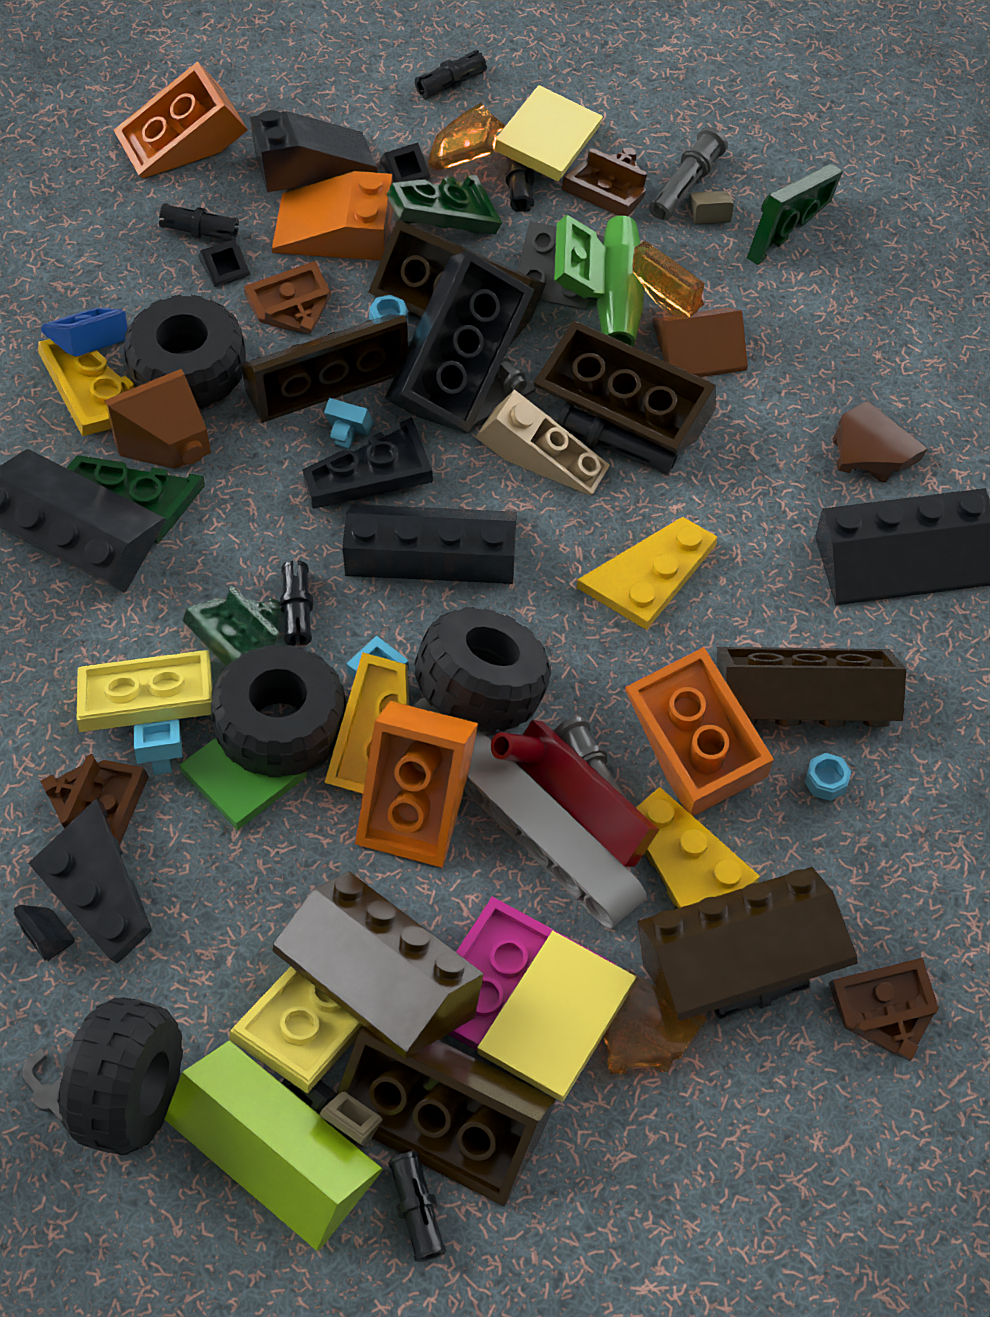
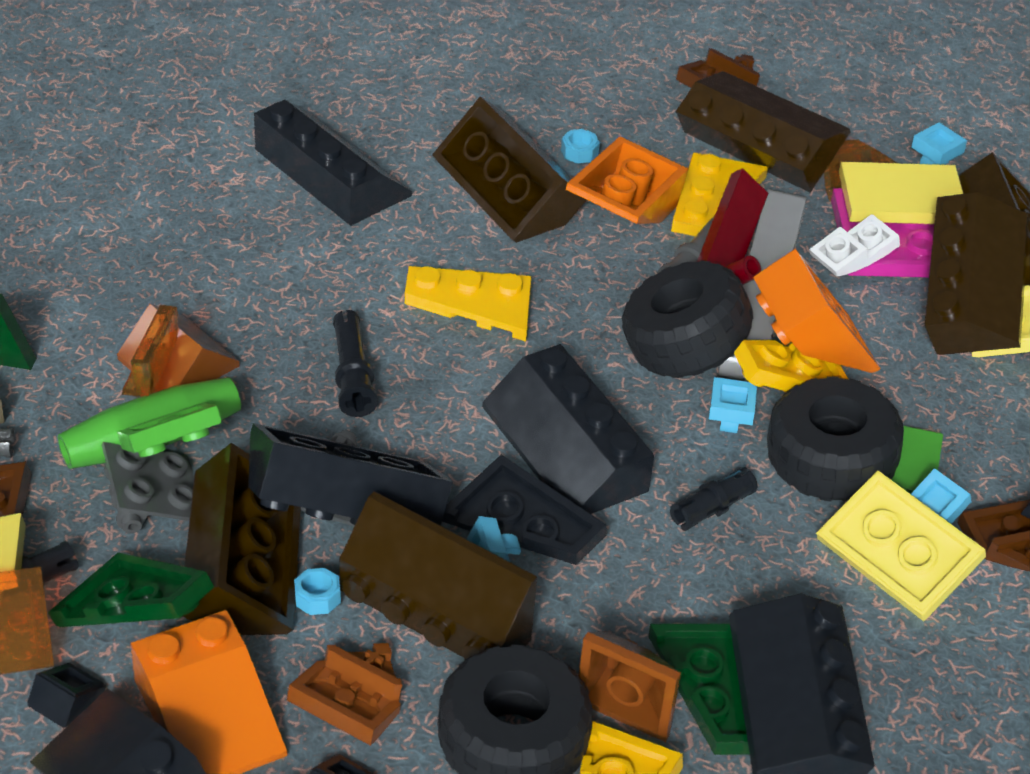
camera: 125 degrees left, 15 degrees down
(234, 624) = (778, 524): clear green slope -> none
(502, 902) = (858, 248): none -> white slope
(539, 444) = (403, 407): tan slope -> none
(624, 1132) = (938, 145): none -> medium azure tile
(628, 387) = (304, 356): dark brown slope -> none
(874, 443) = (226, 210): reddish brown slope -> none

